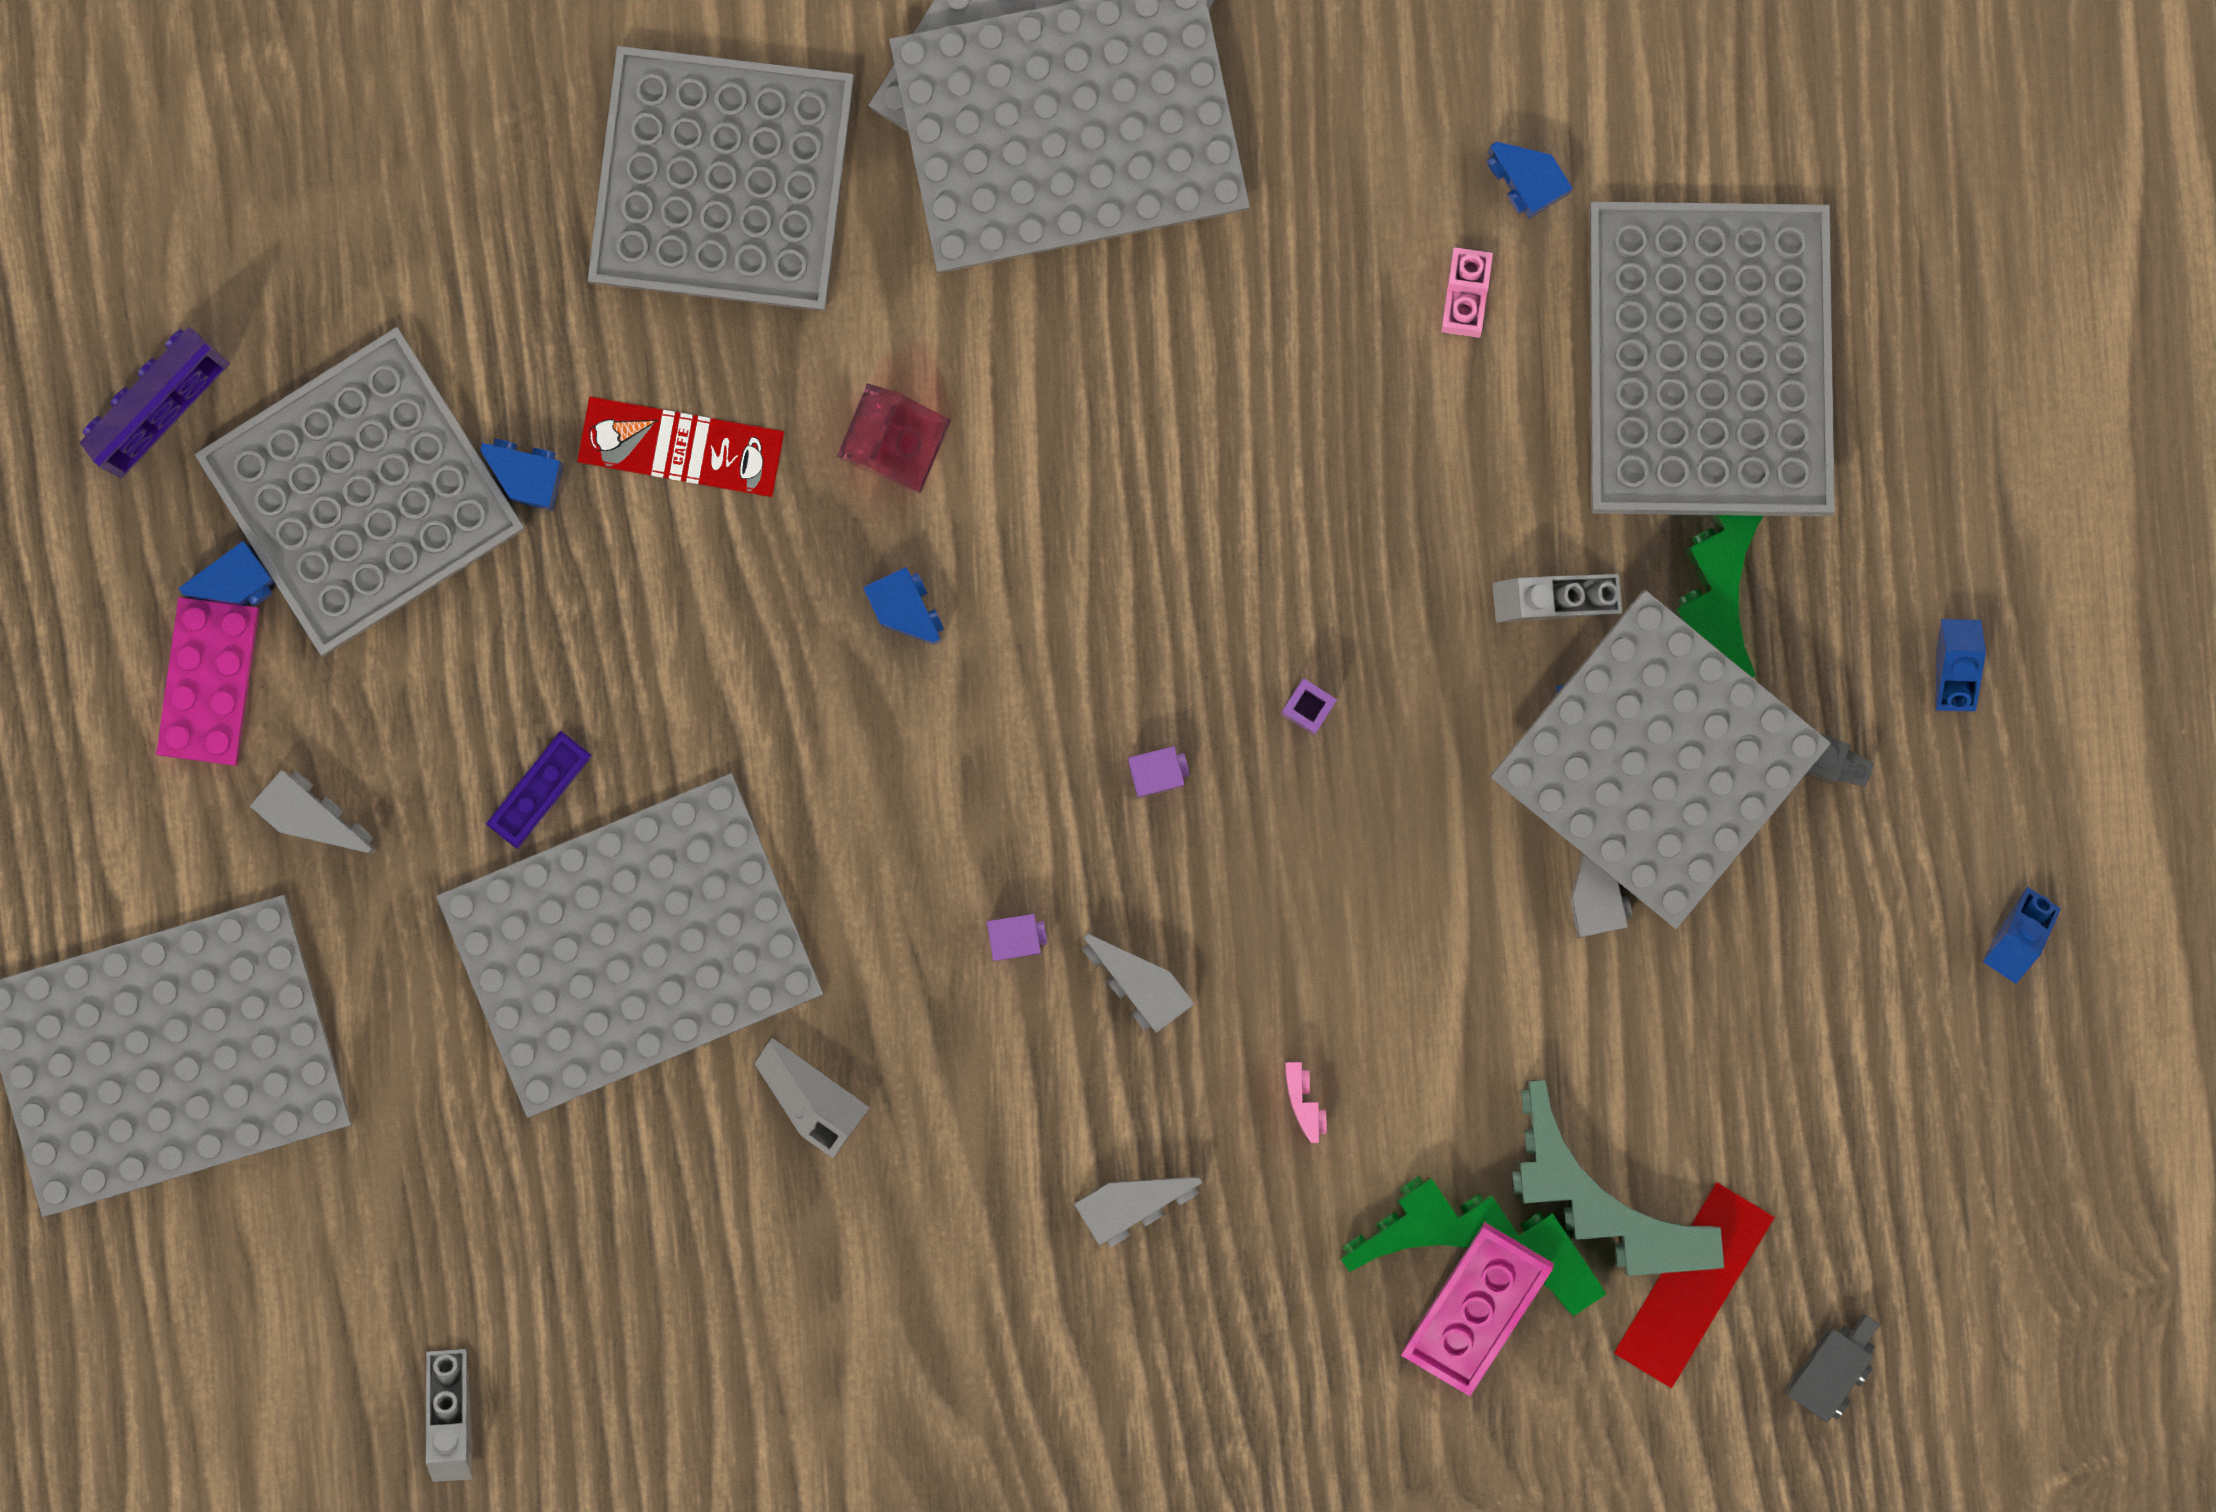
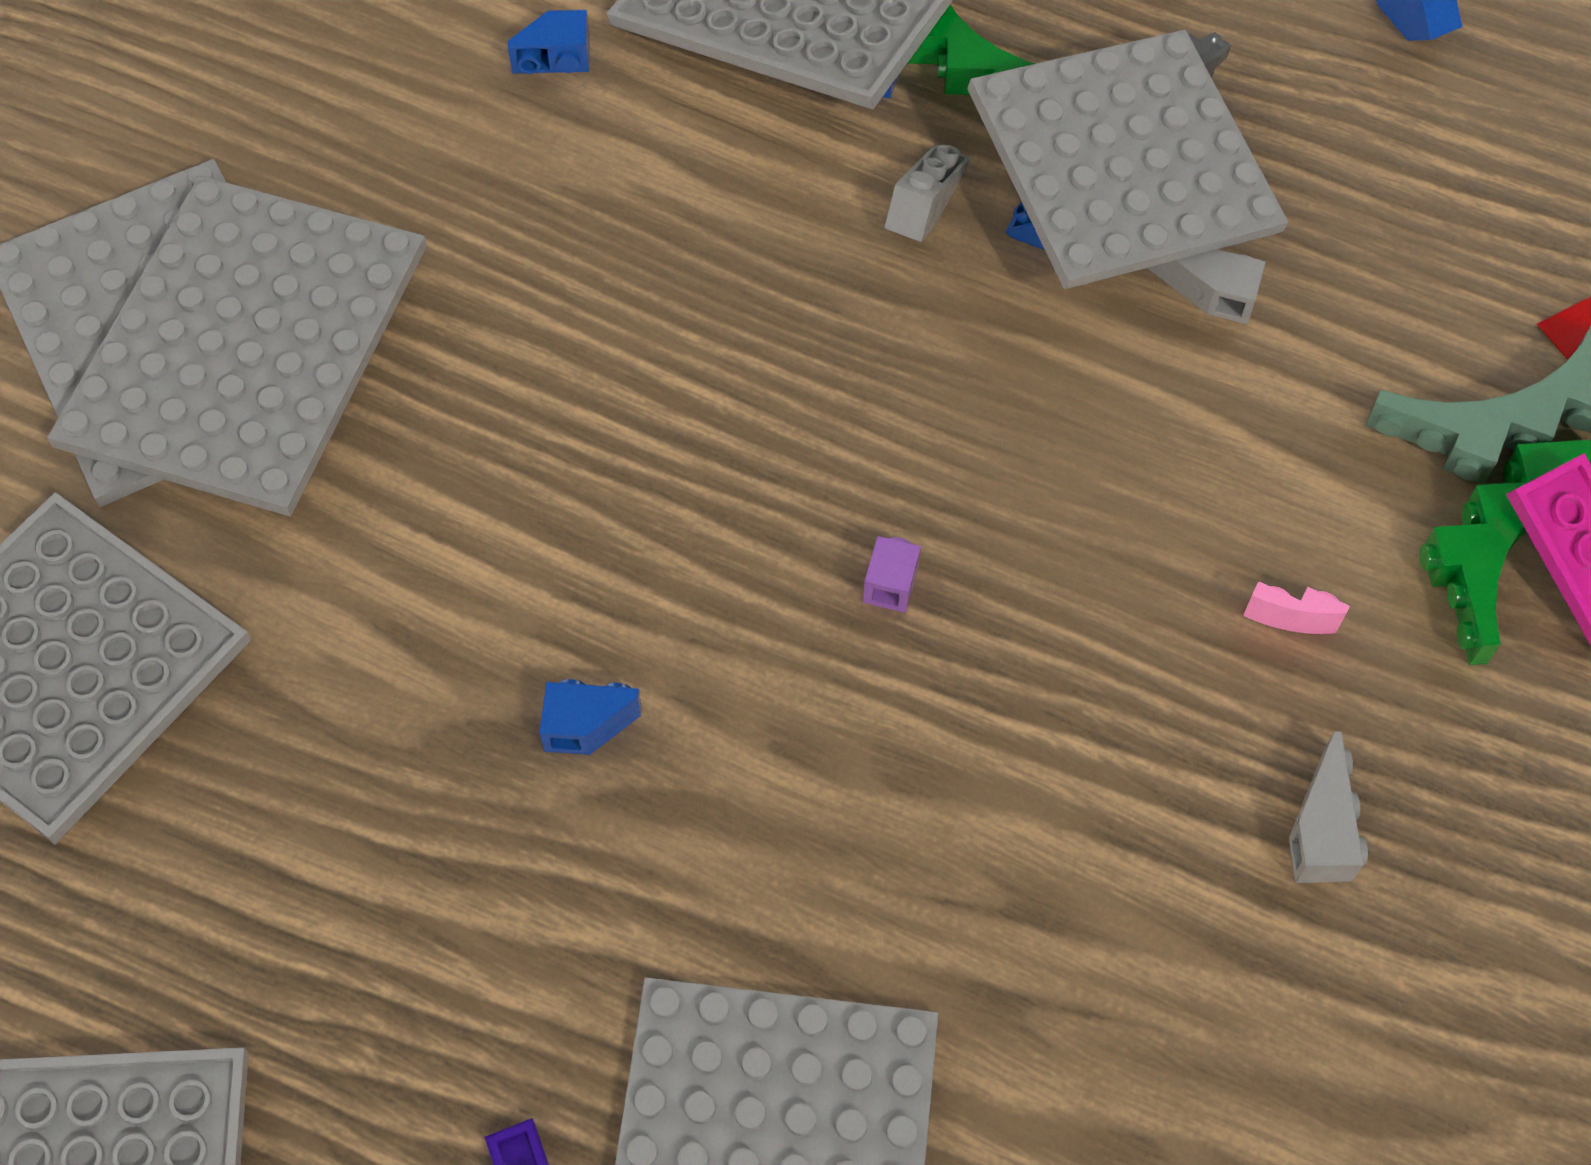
camera: 60 degrees left, 25 degrees down
(525, 477) = (192, 1016): blue slope -> none
(680, 446) = (278, 851): sticker -> none
(812, 1101) = (1049, 1085): light grey slope -> none
(893, 437) = (412, 637): clear pink slope -> none
(1016, 937) = (984, 786): medium lavender brick -> none
(1148, 986) = (1103, 689): light grey slope -> none
(1308, 707) = (908, 411): medium lavender brick -> none
(1466, 292) = (616, 136): bright pink slope -> none

